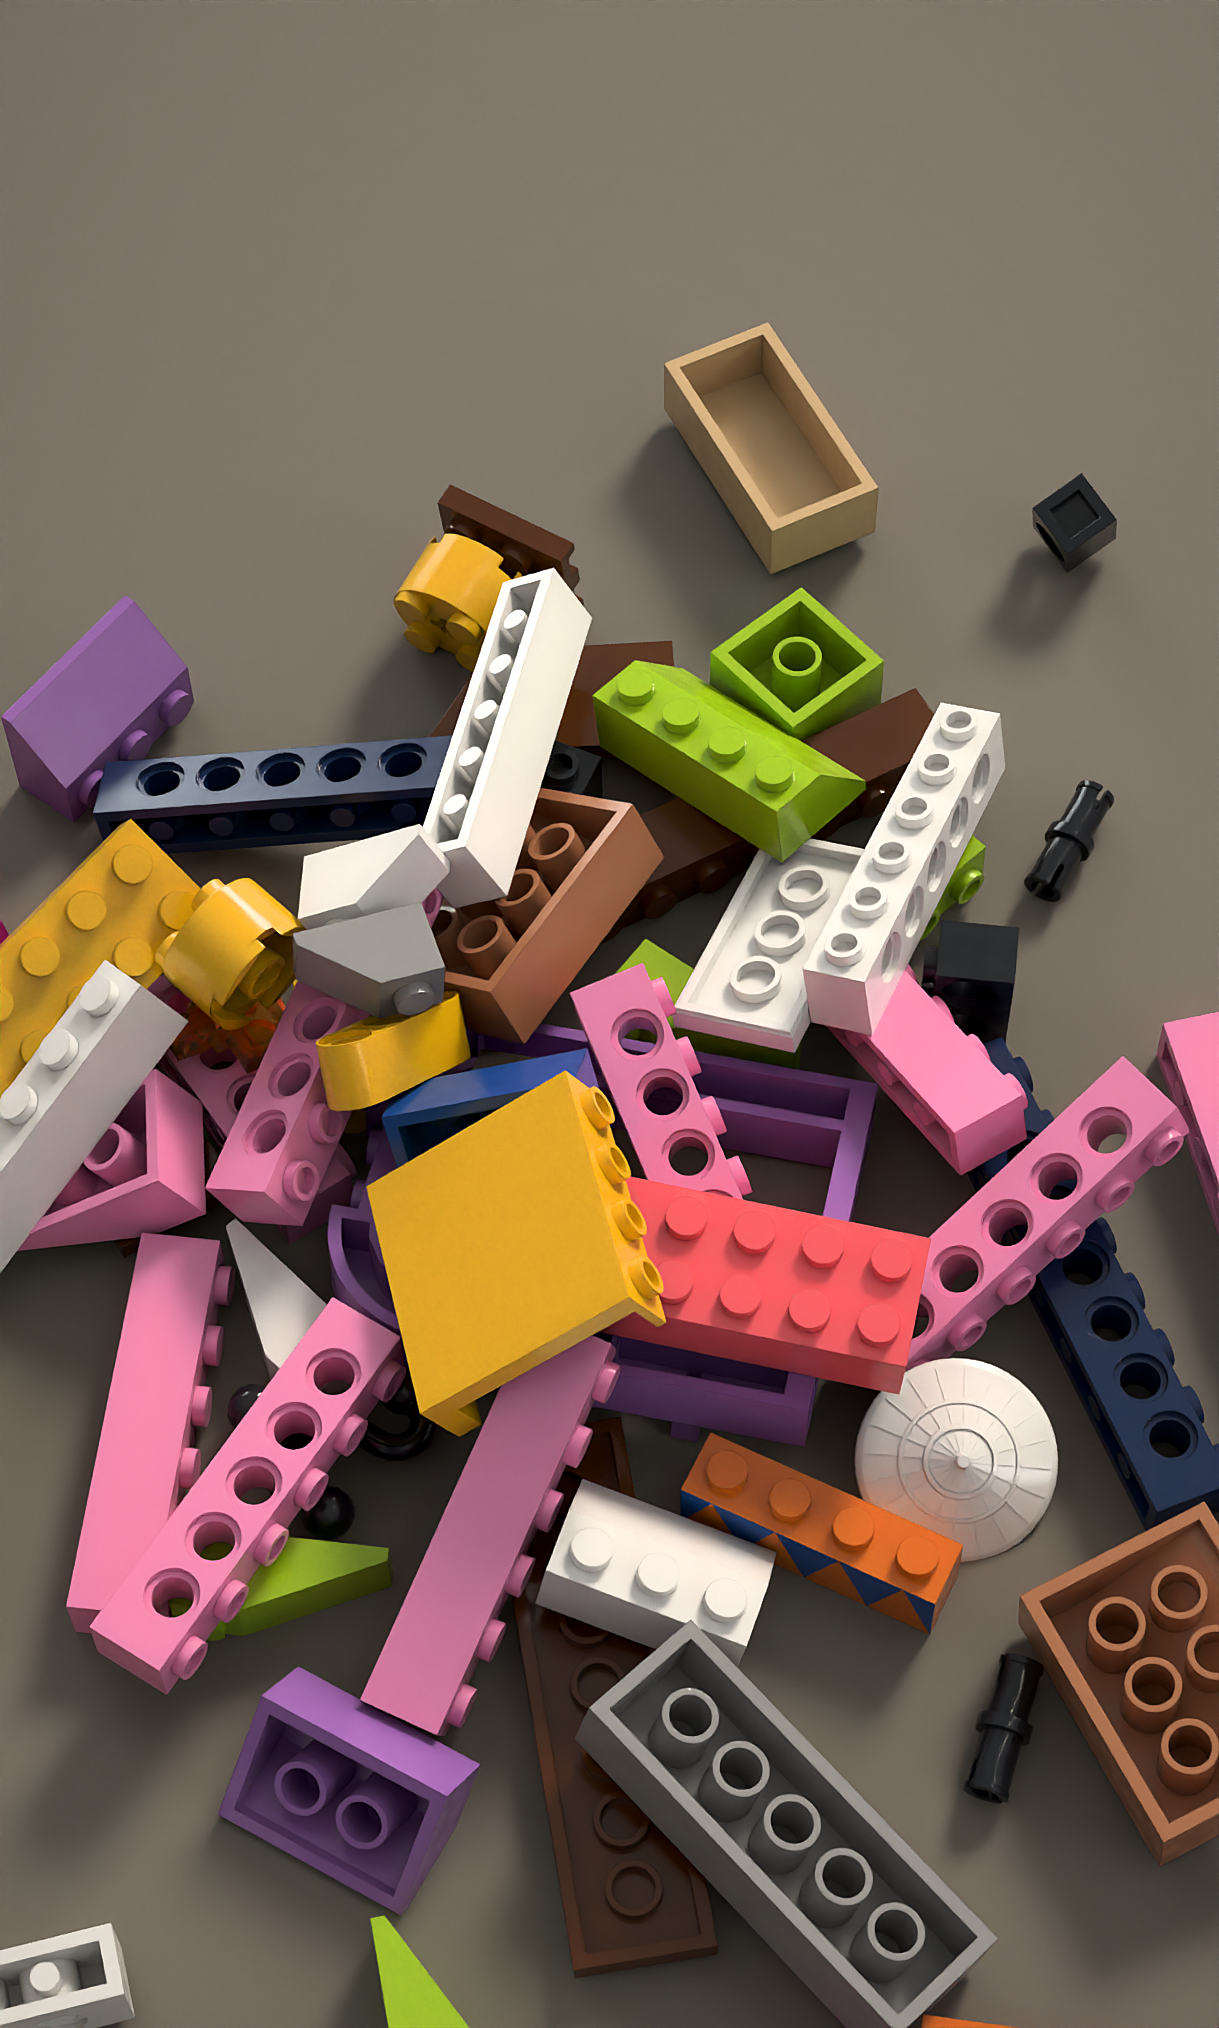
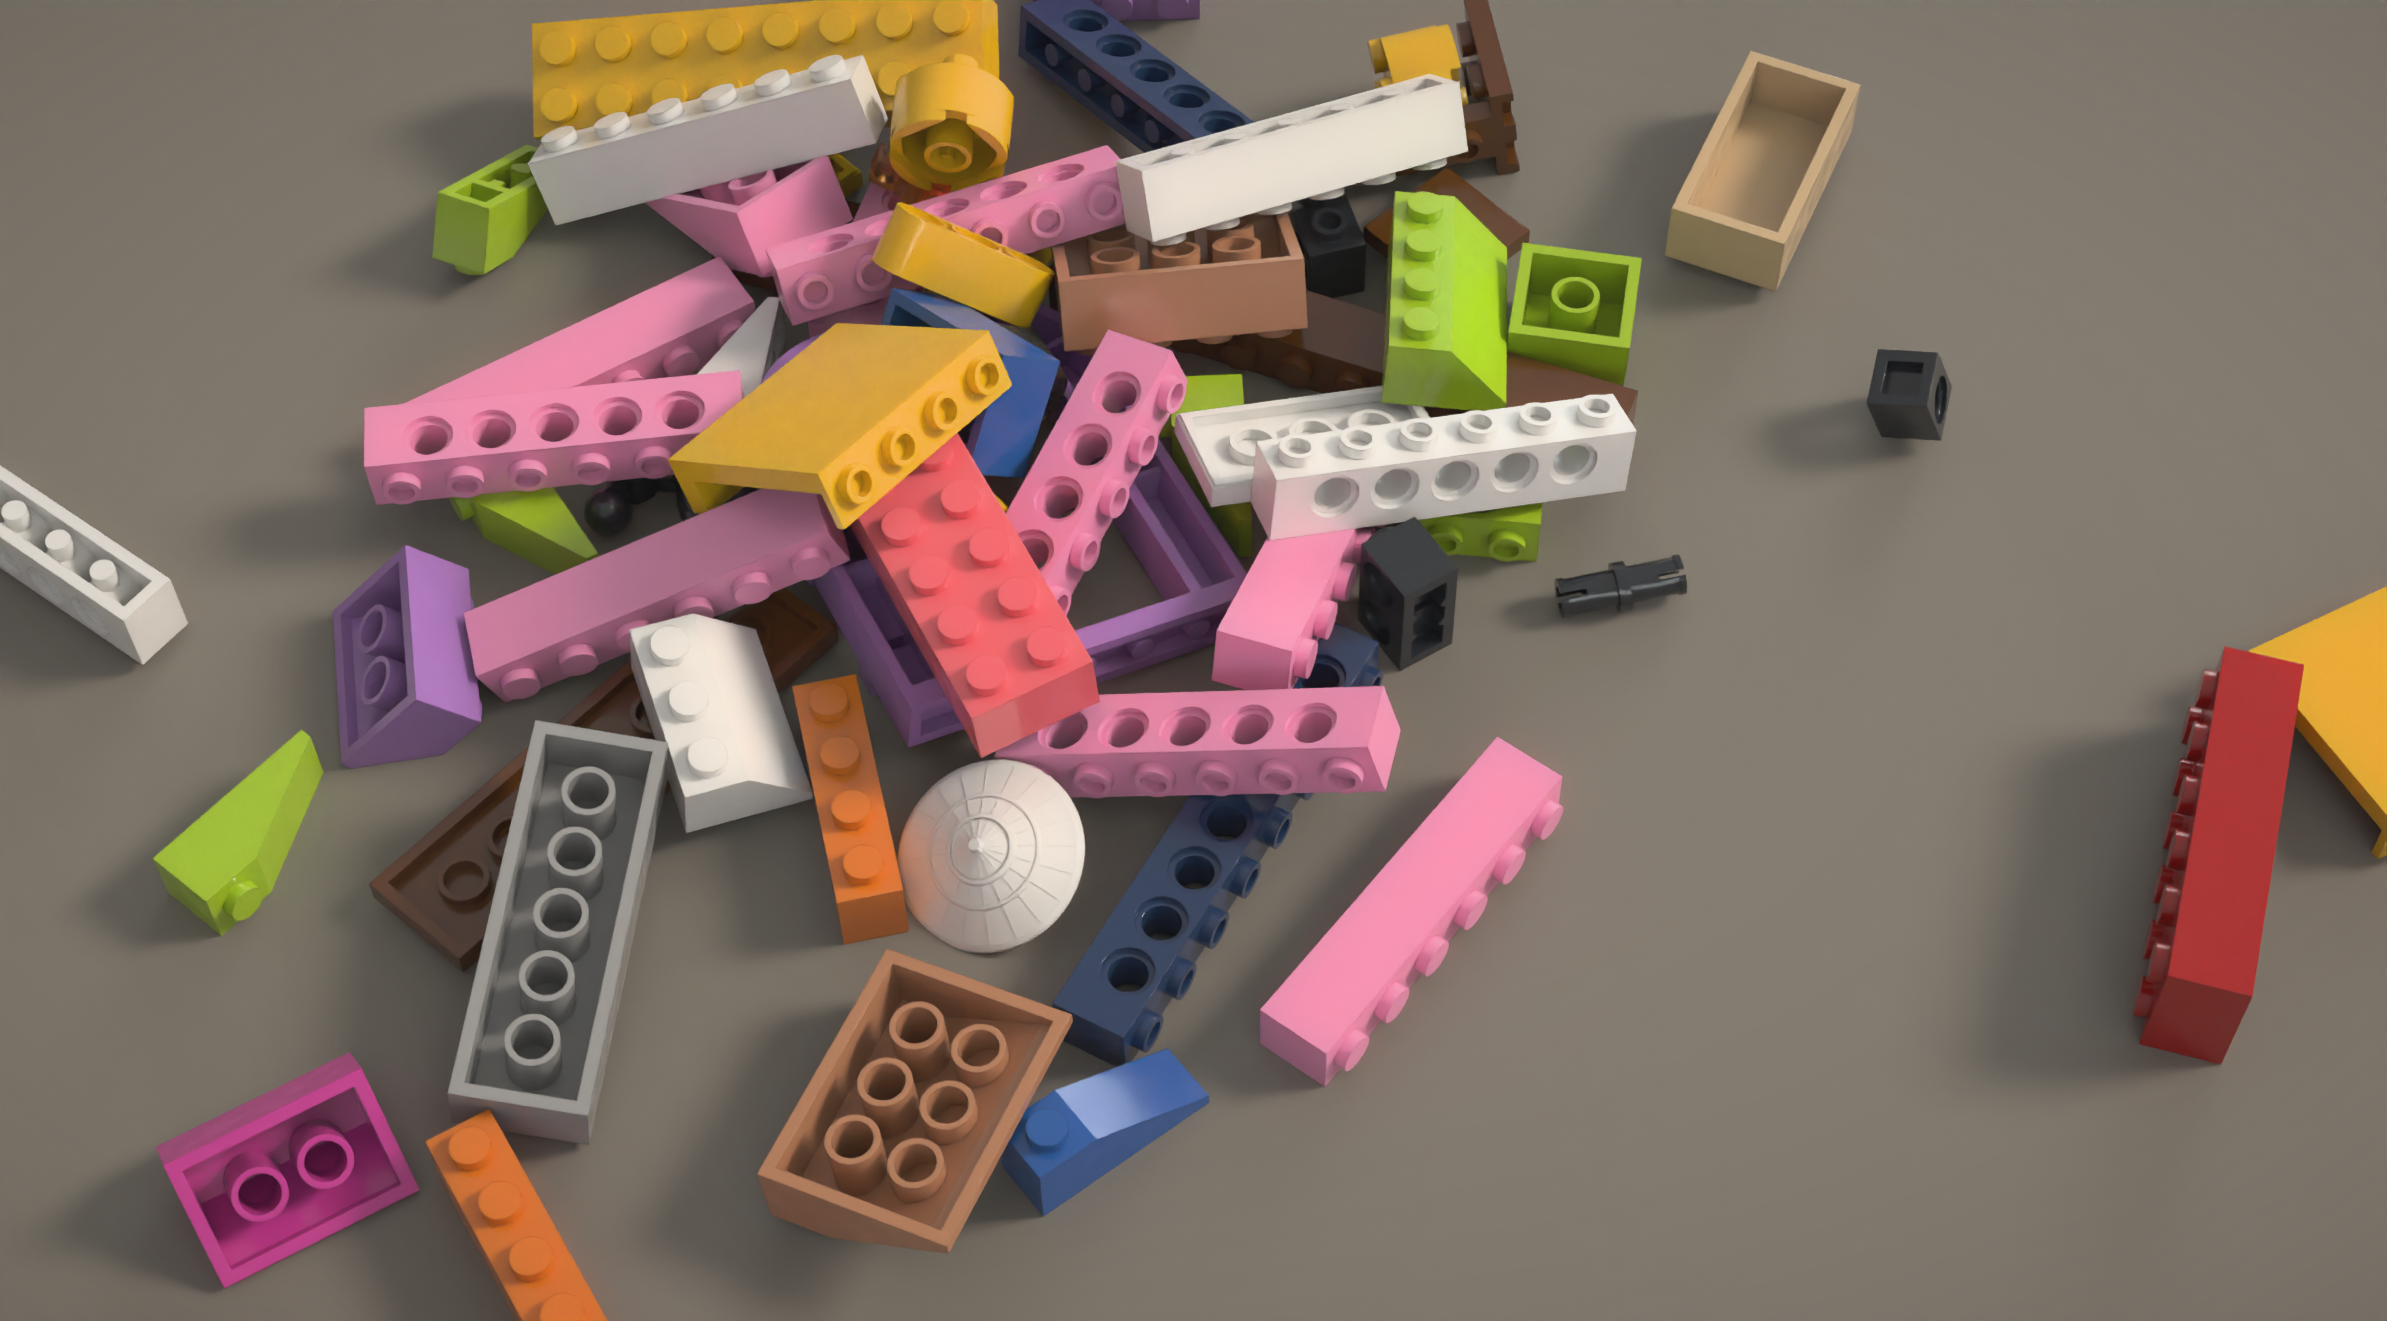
camera: 50 degrees right, 5 degrees down
(370, 876) = (1060, 150): white slope -> none
(374, 961) = (1006, 193): light grey slope -> none
(1003, 1728) = (789, 1034): black pin -> none

